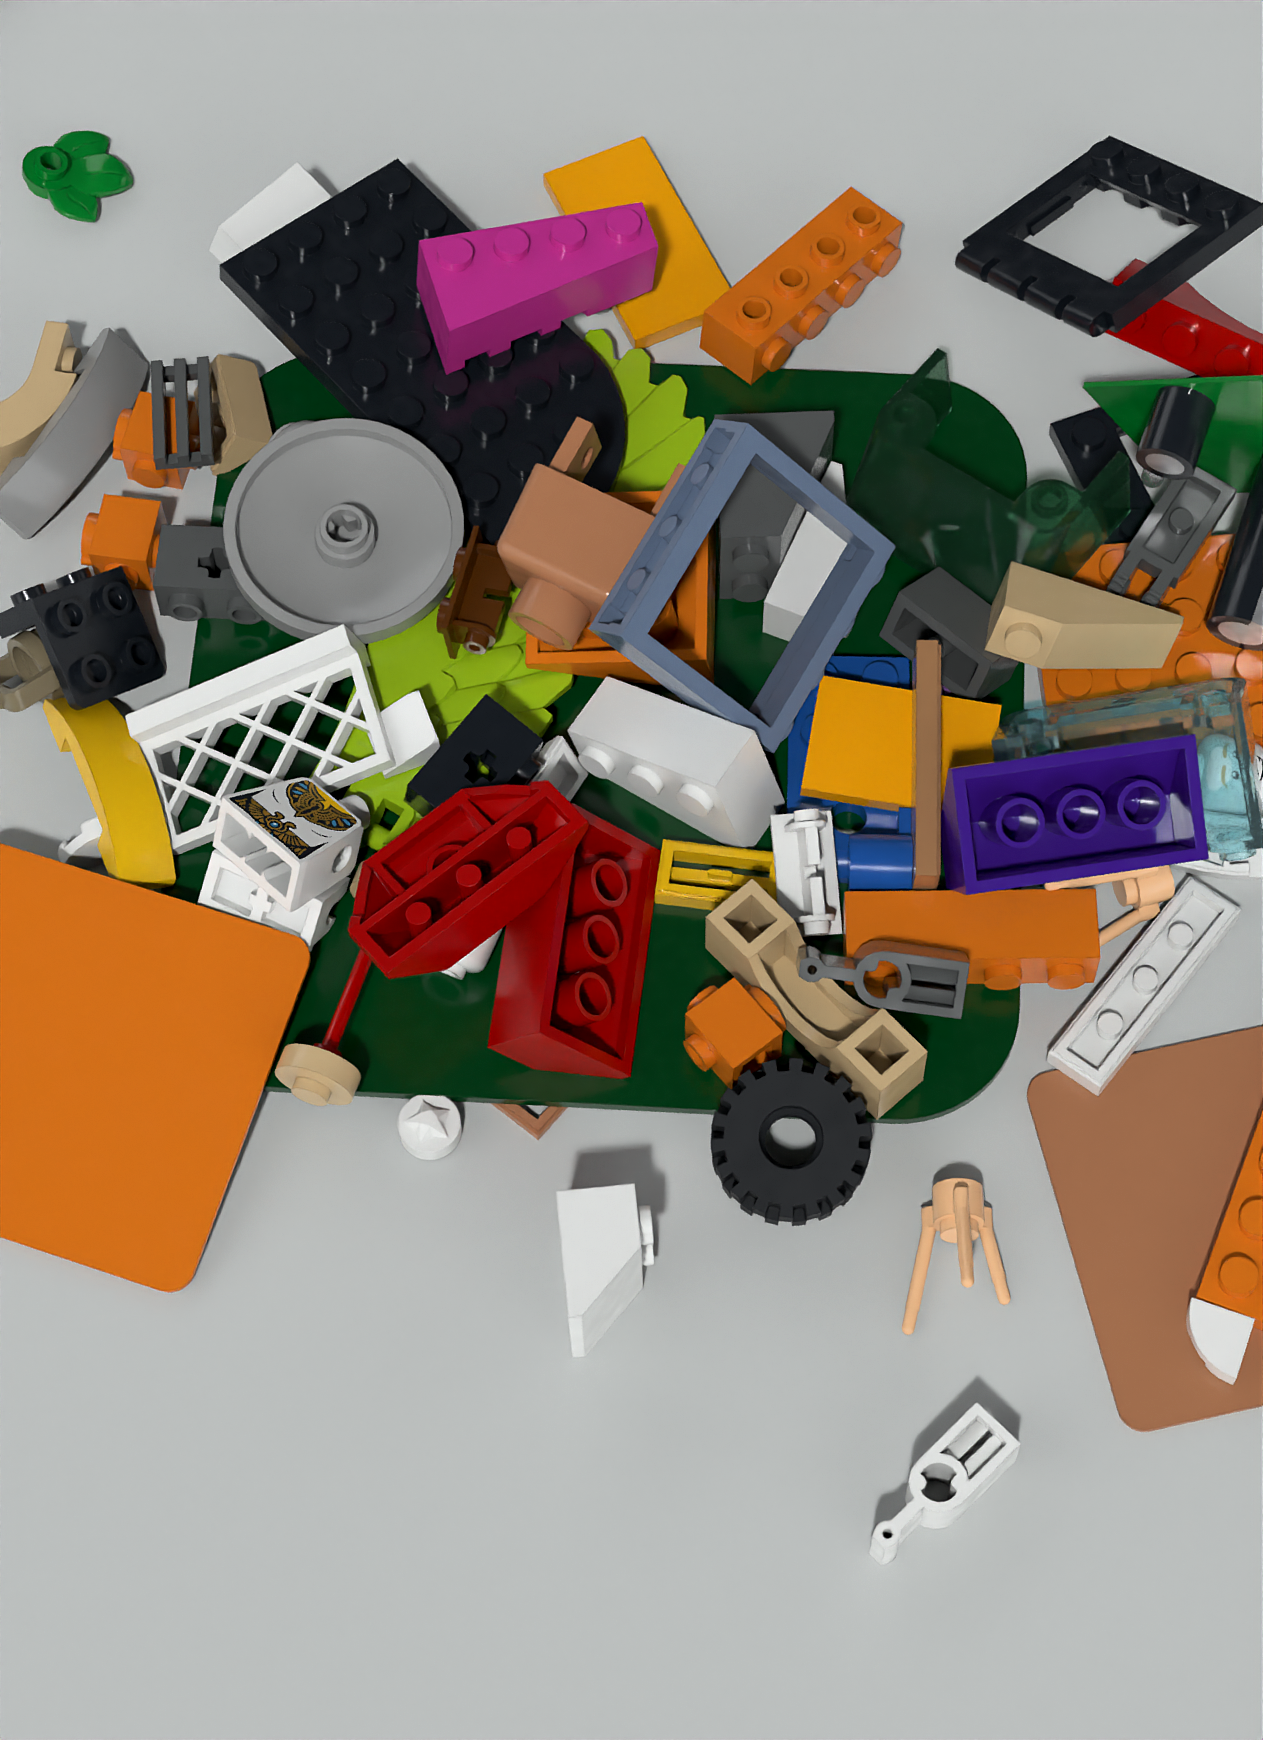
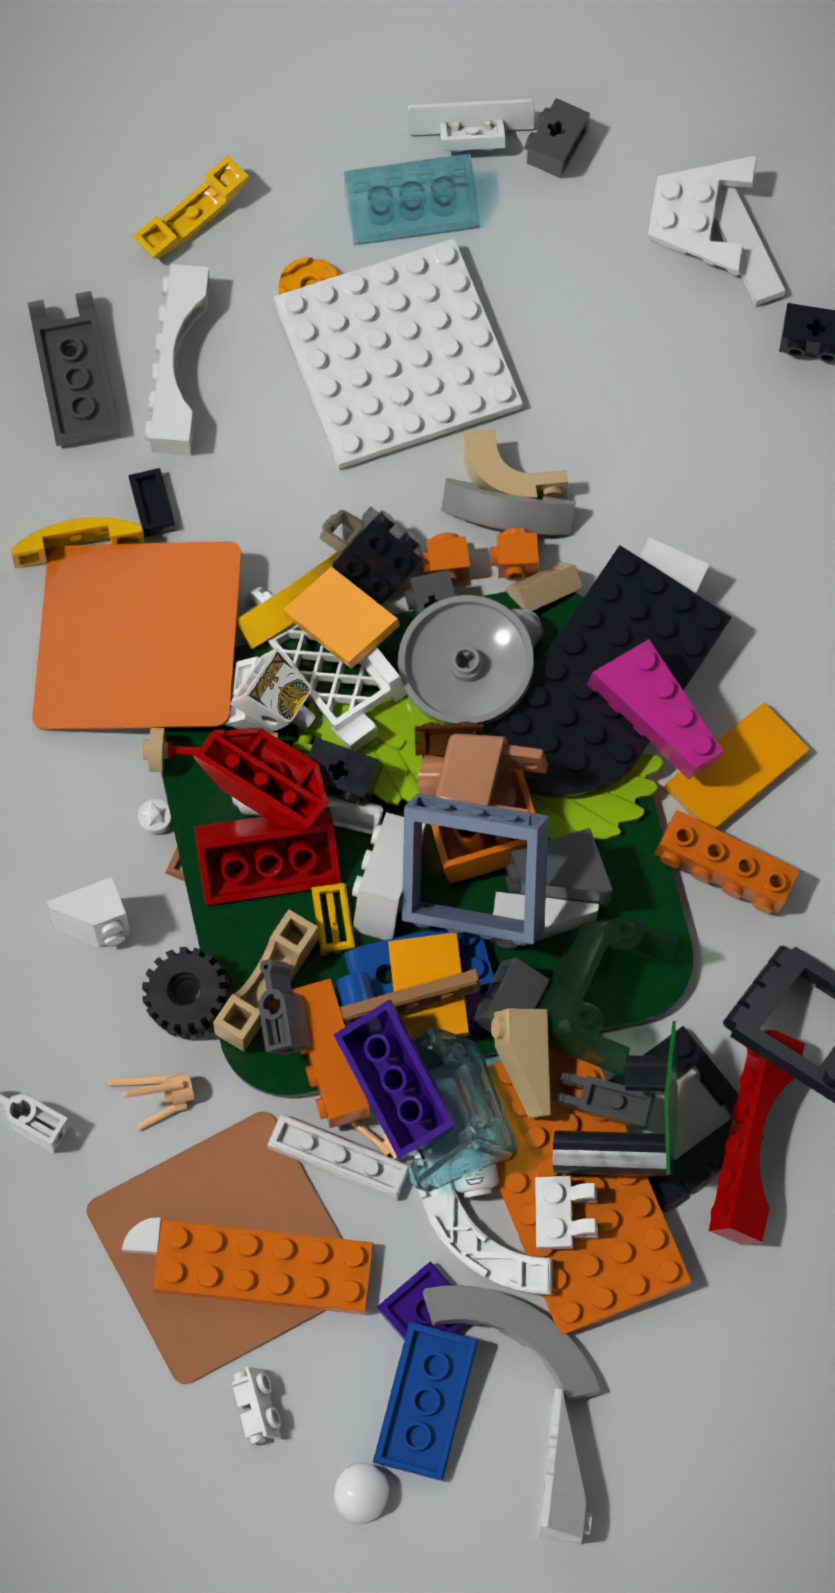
camera: 70 degrees right, 5 degrees up
(78, 174) = (682, 458): green plate -> none
(180, 374) = (522, 546): dark grey tile -> none
(189, 700) = (341, 617): none -> light orange tile
(733, 1030) = (239, 946): orange brick -> none
(807, 870) = (342, 958): white hinge -> none

